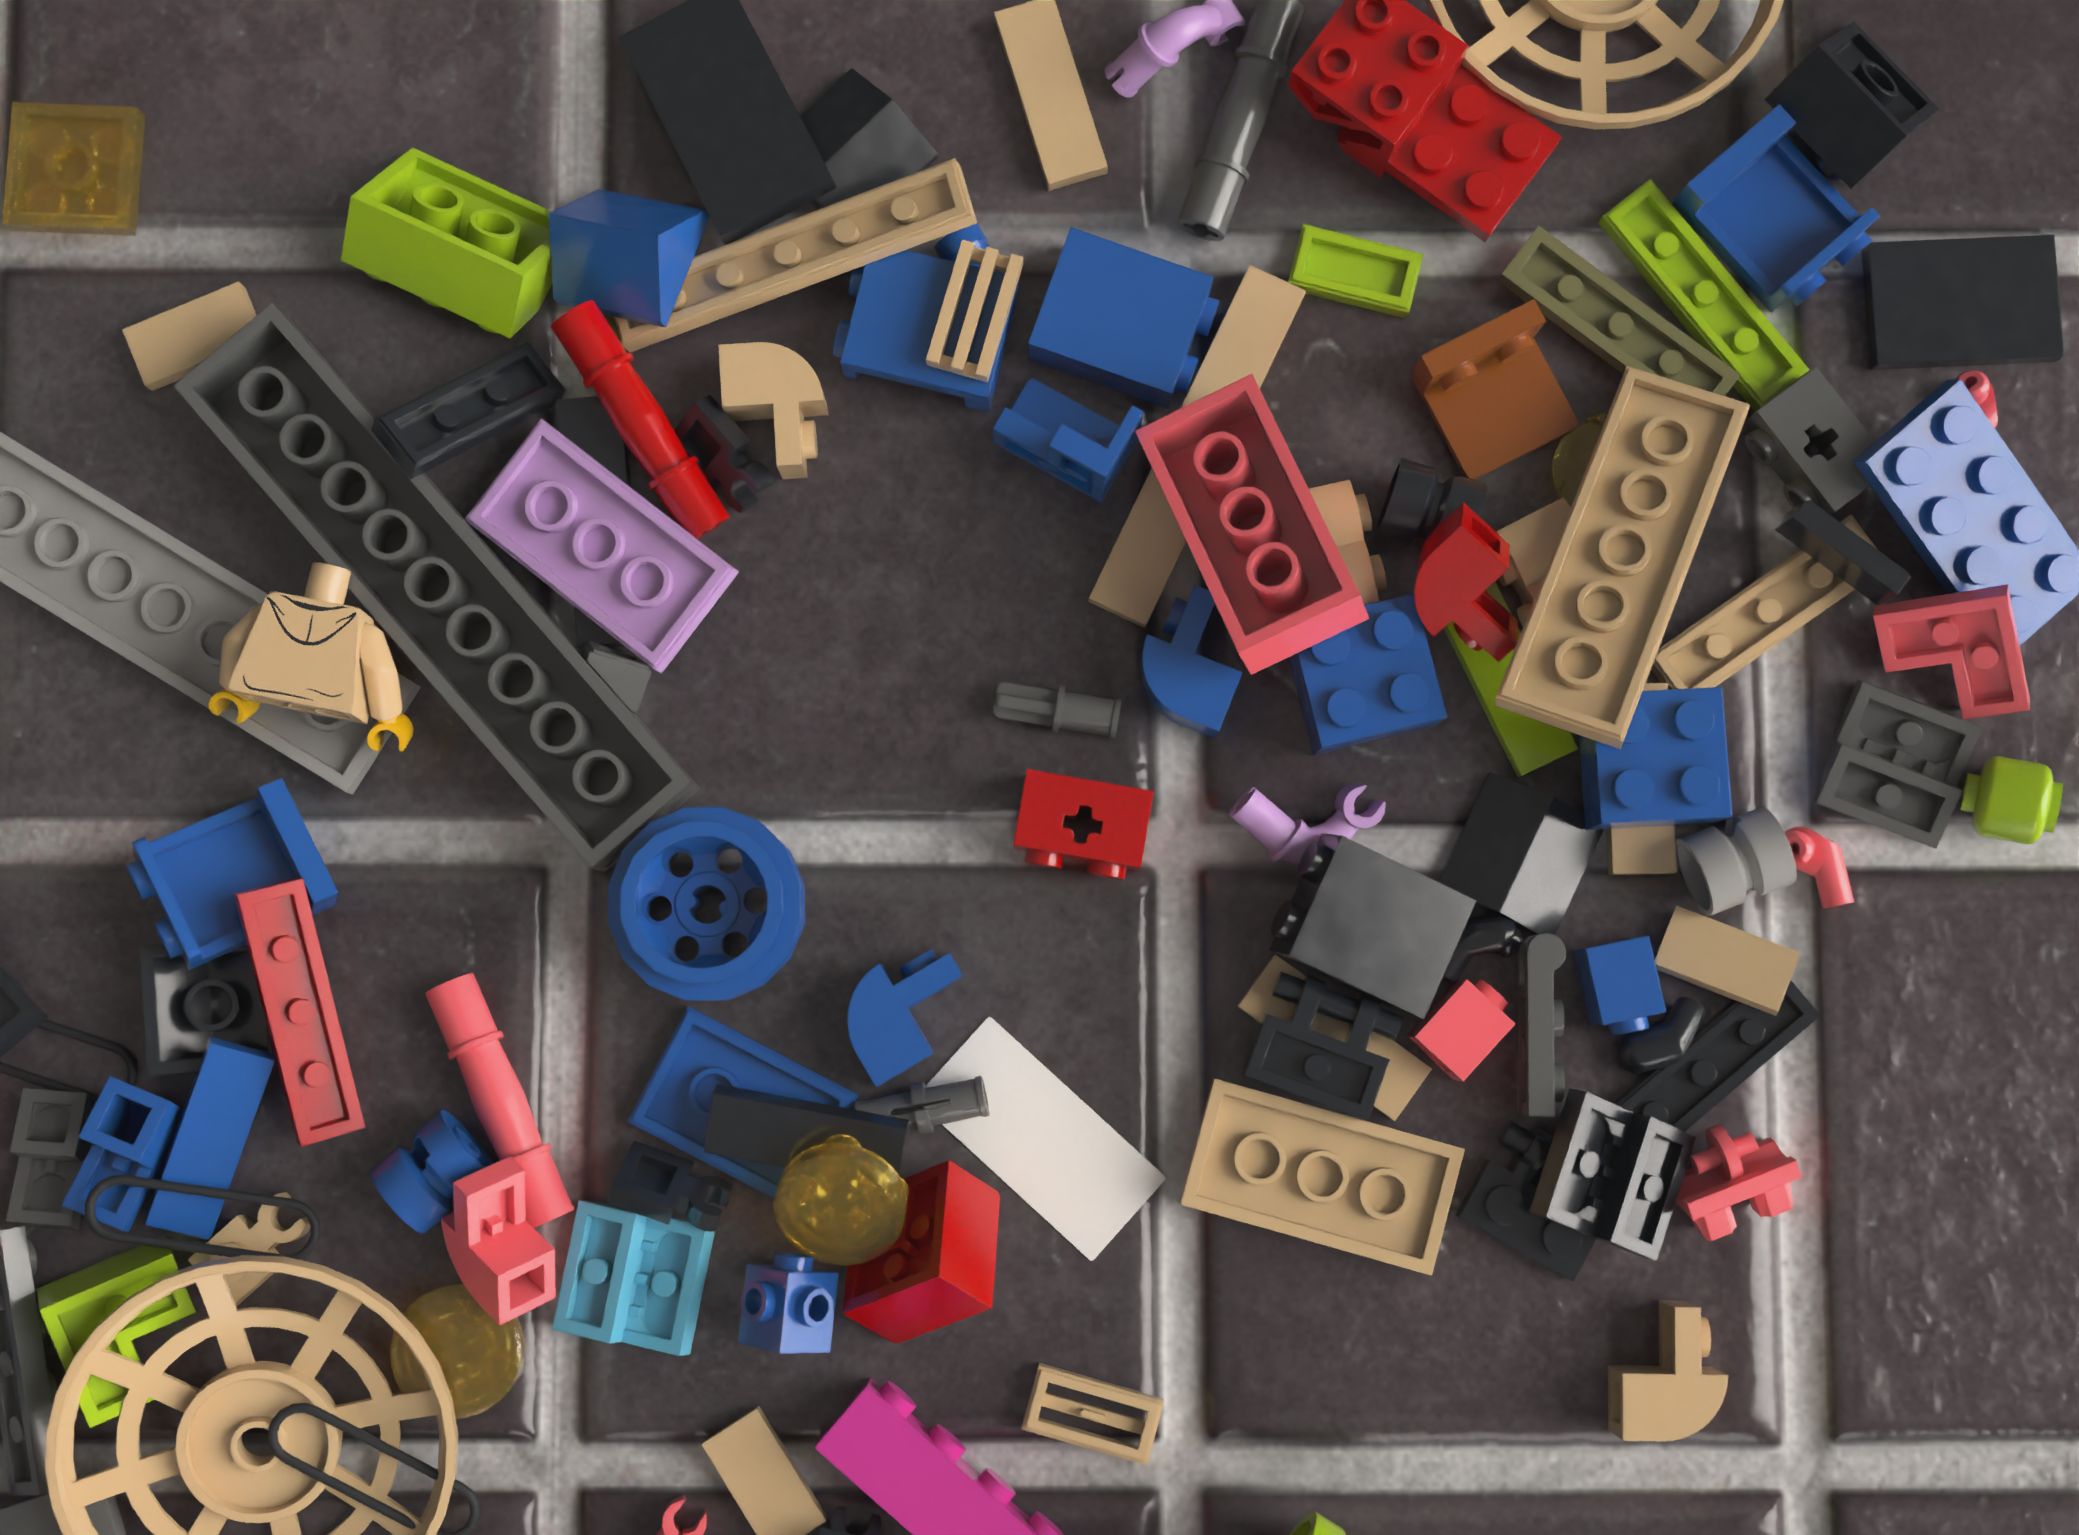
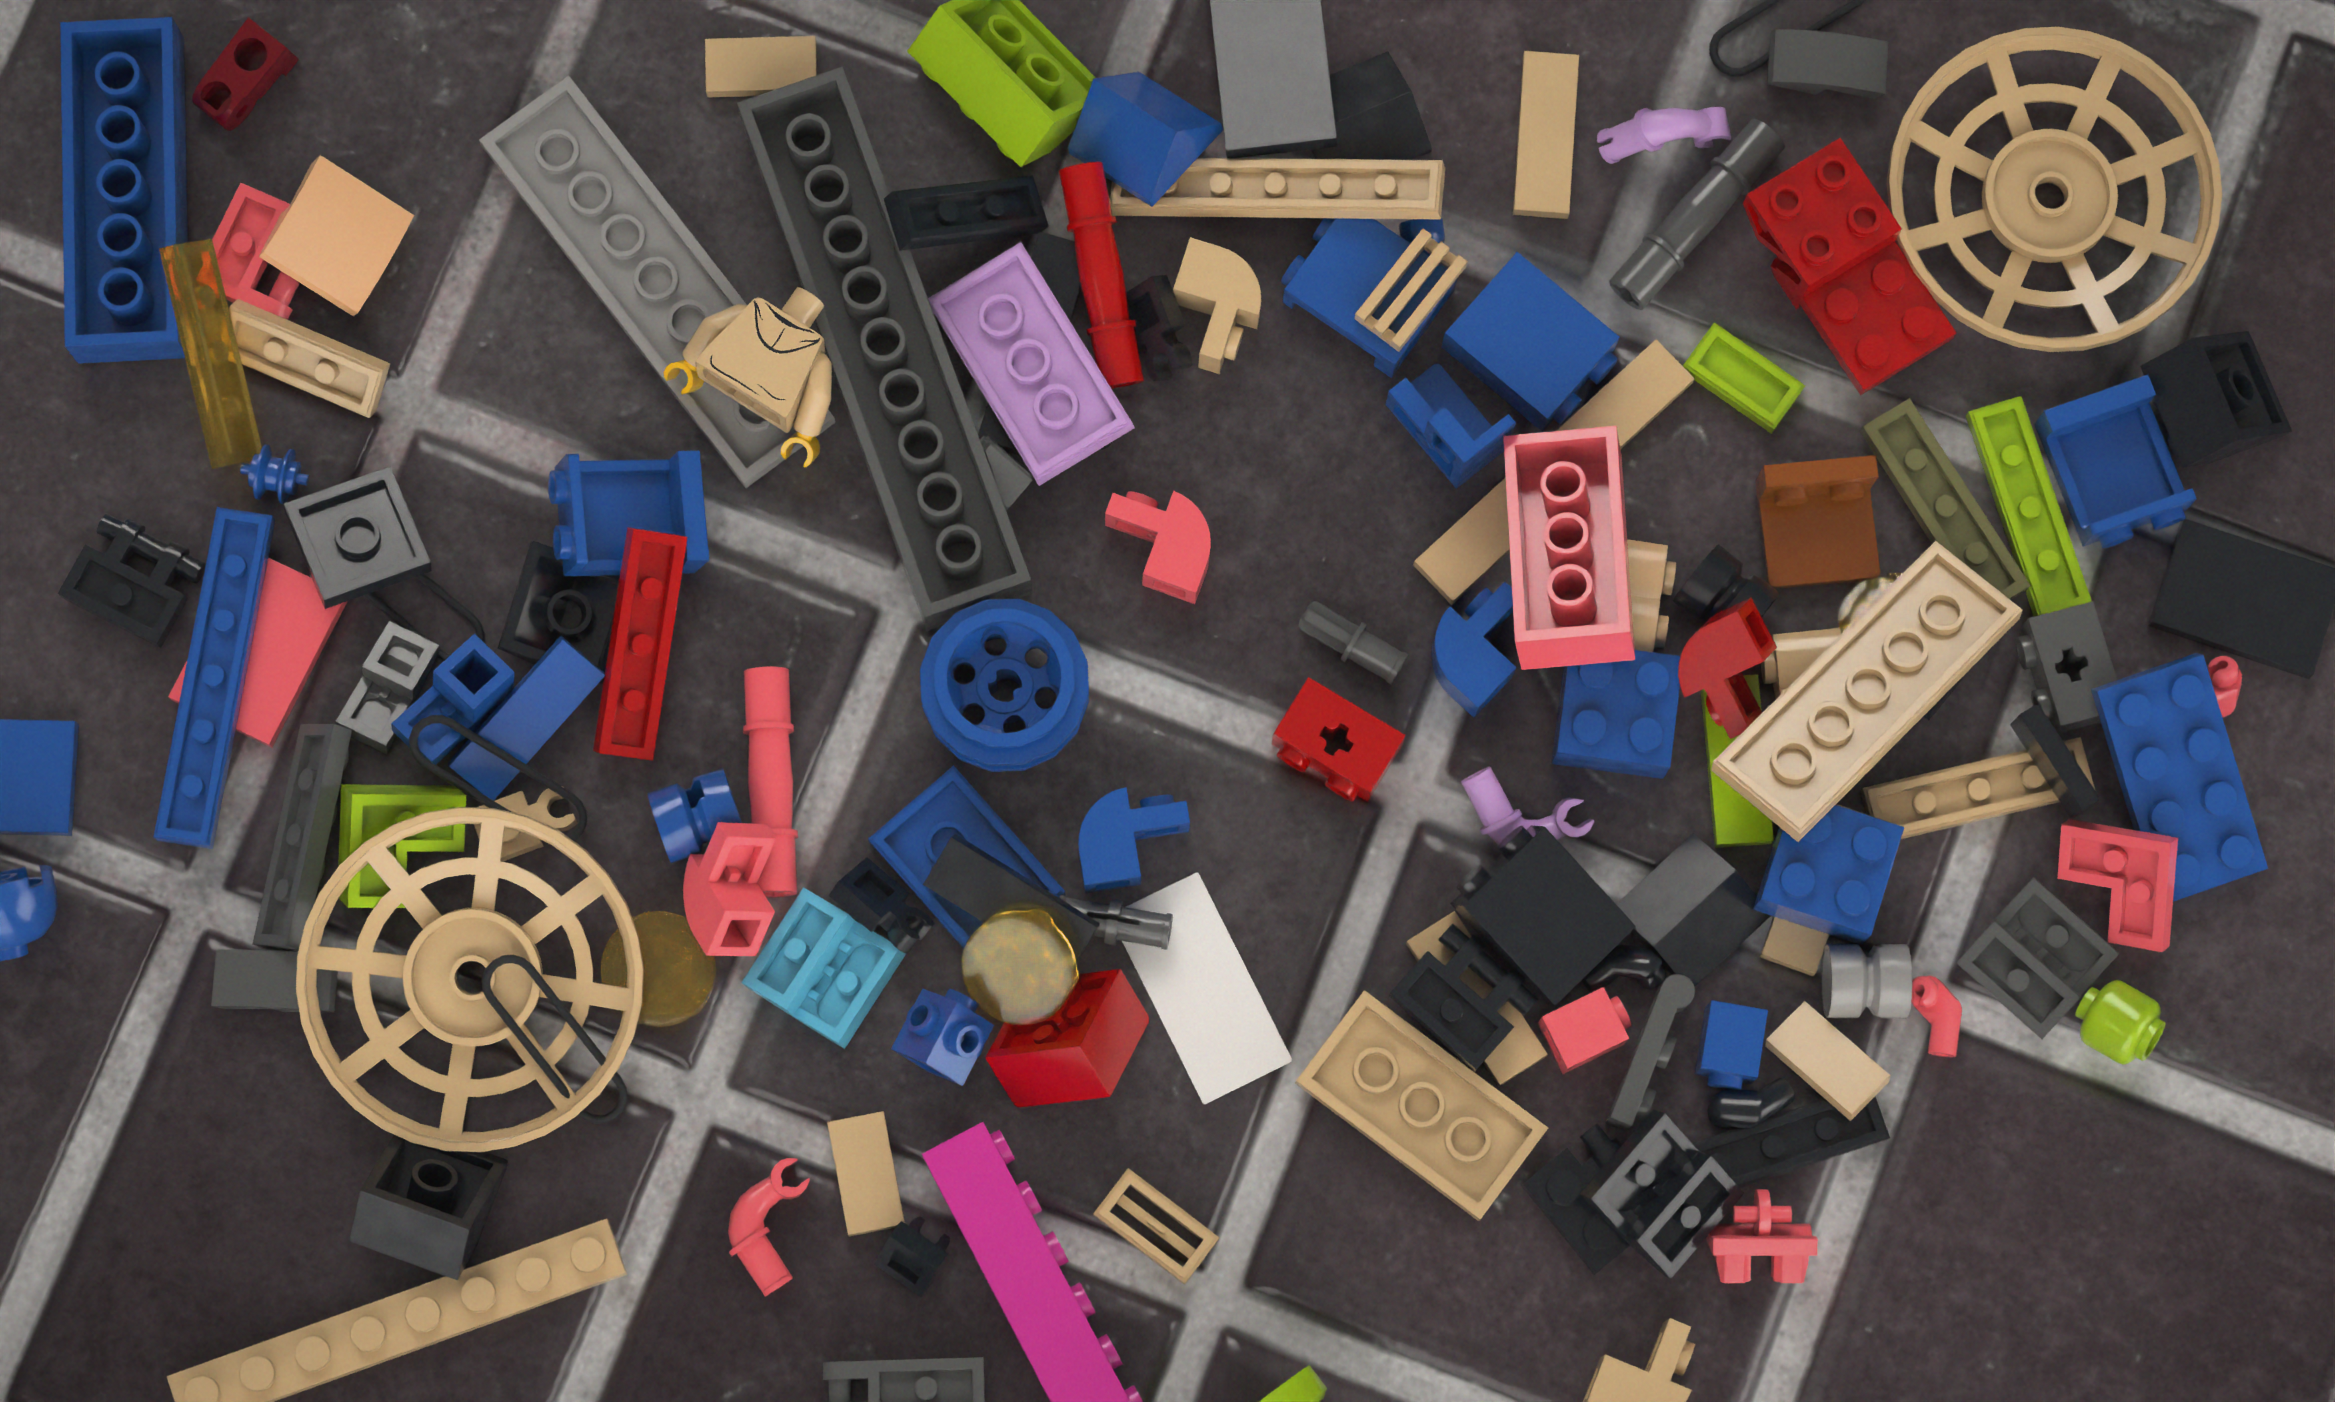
camera: 20 degrees right, 5 degrees down
(835, 674) = (1179, 539): none -> coral brick

